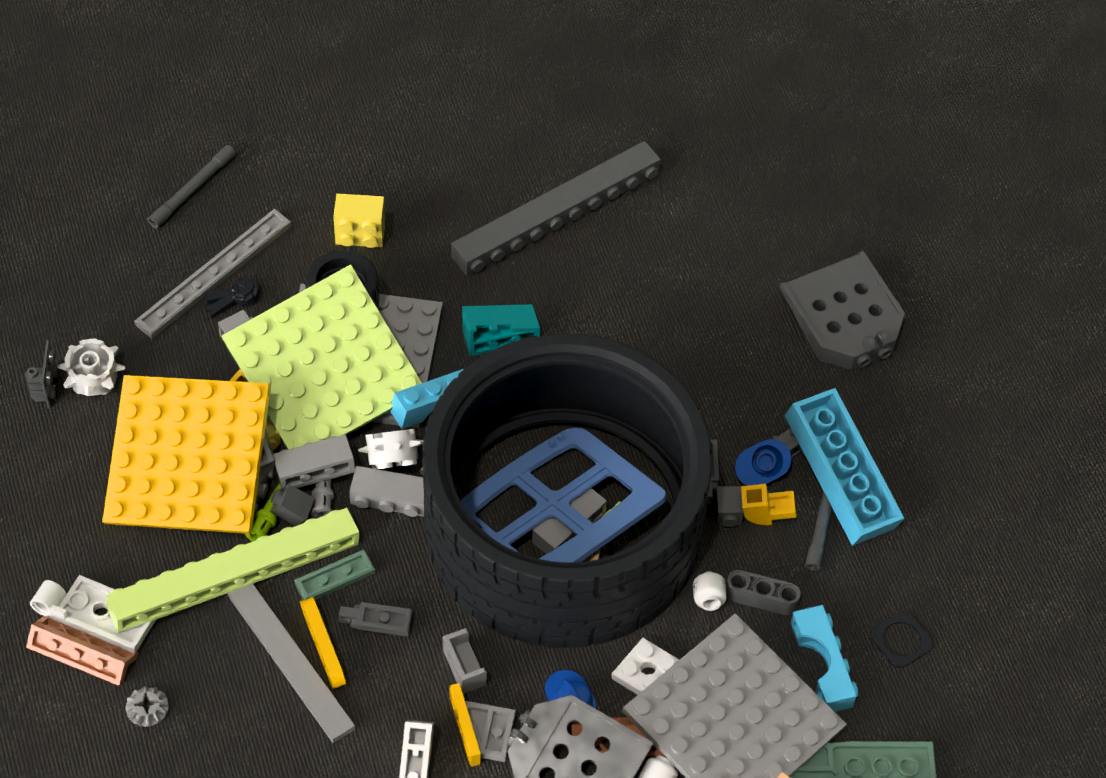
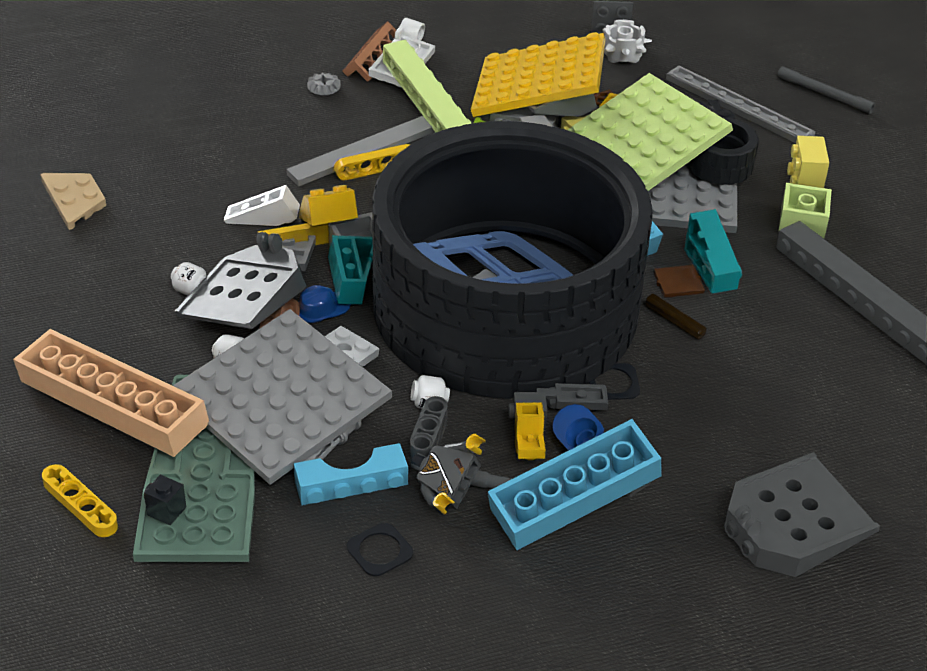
camera: 90 degrees right, 15 degrees down
(427, 237) = (806, 205): none -> yellowish green brick
(438, 680) = (328, 206): none -> yellow slope
(528, 661) = (350, 266): none -> teal wedge
(826, 573) = (448, 472): none -> dark grey torso

